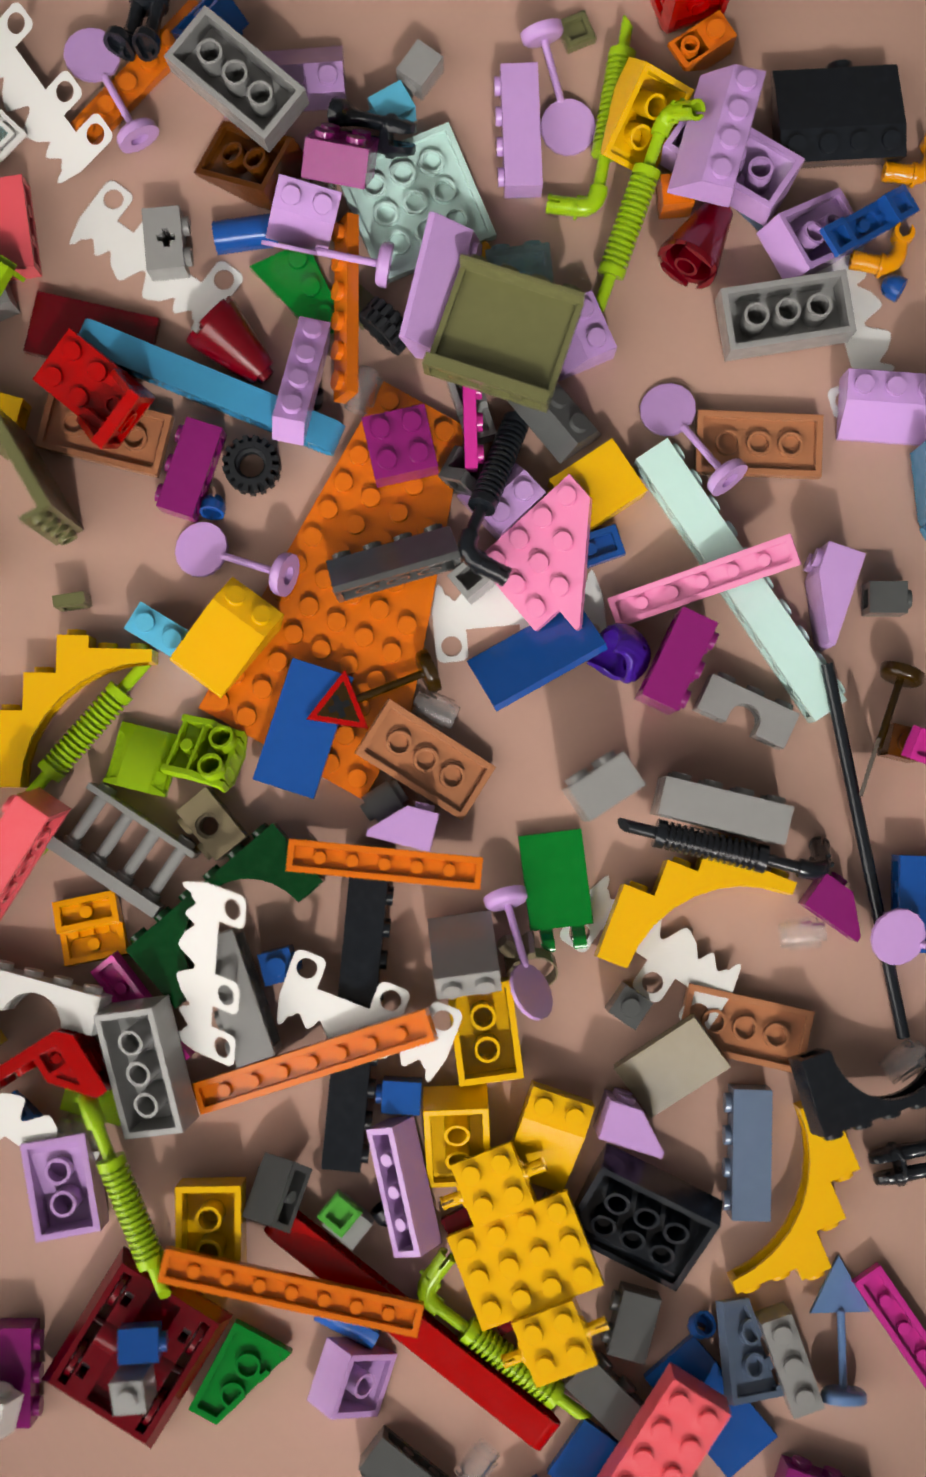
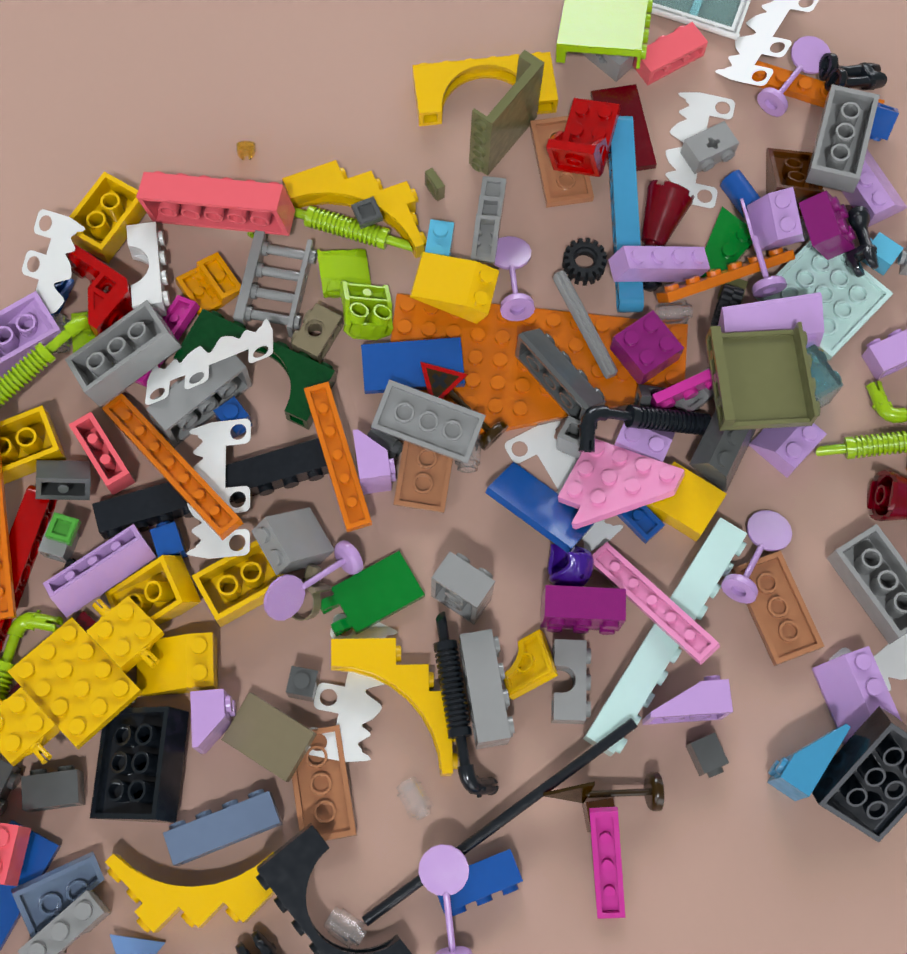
camera: 65 degrees right, 15 degrees down
(81, 701) = (367, 212): none -> dark grey tile
(148, 556) = (488, 220): none -> light grey slope
(190, 469) = (561, 223): magenta brick -> none
(213, 507) = (542, 248): blue hinge -> none
(260, 1135) = (101, 453): none -> coral brick
(336, 503) = (585, 324): none -> light grey axle
(389, 742) = (428, 421): none -> light grey plate
(701, 1319) = (74, 848): blue hinge -> none
(713, 744) = (532, 665): none -> yellow tile
(833, 904) = (449, 813): magenta slope -> none

